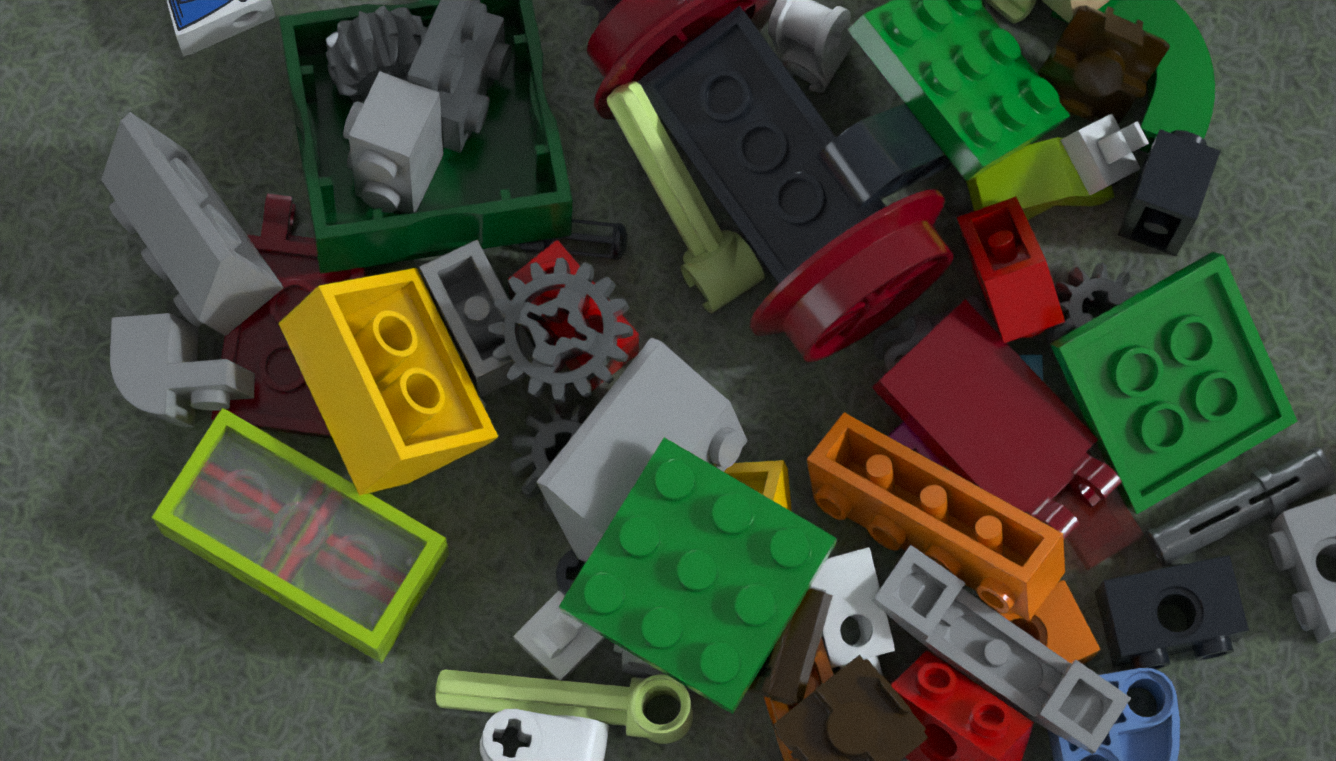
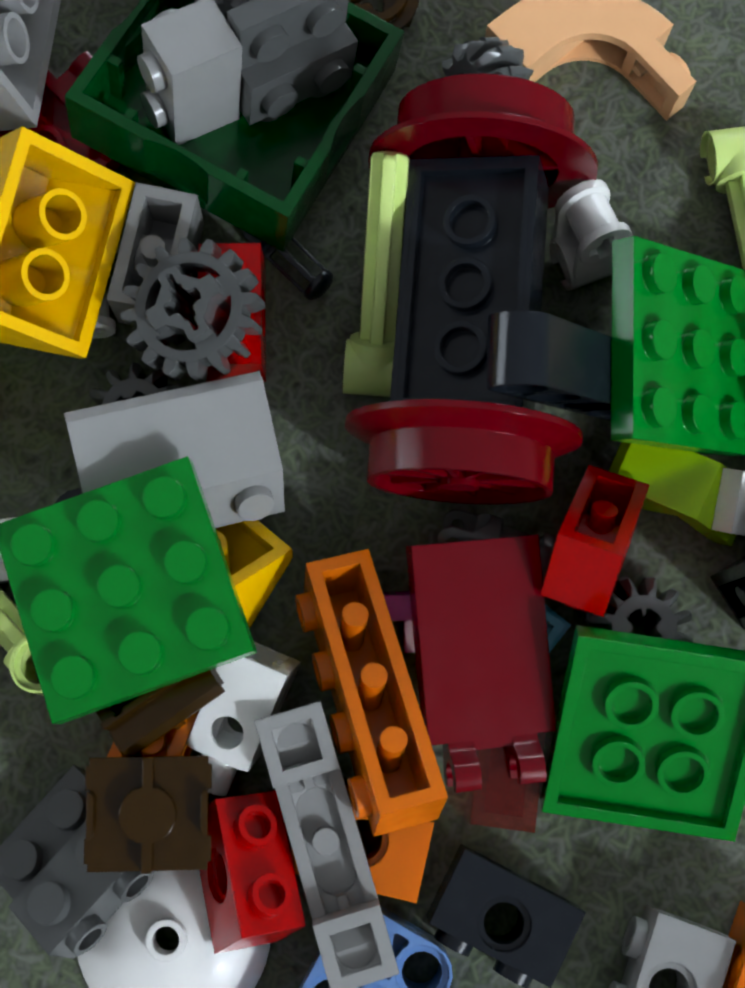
camera: 40 degrees right, 5 degrees up
(1306, 476) = (634, 873): dark grey pin -> none

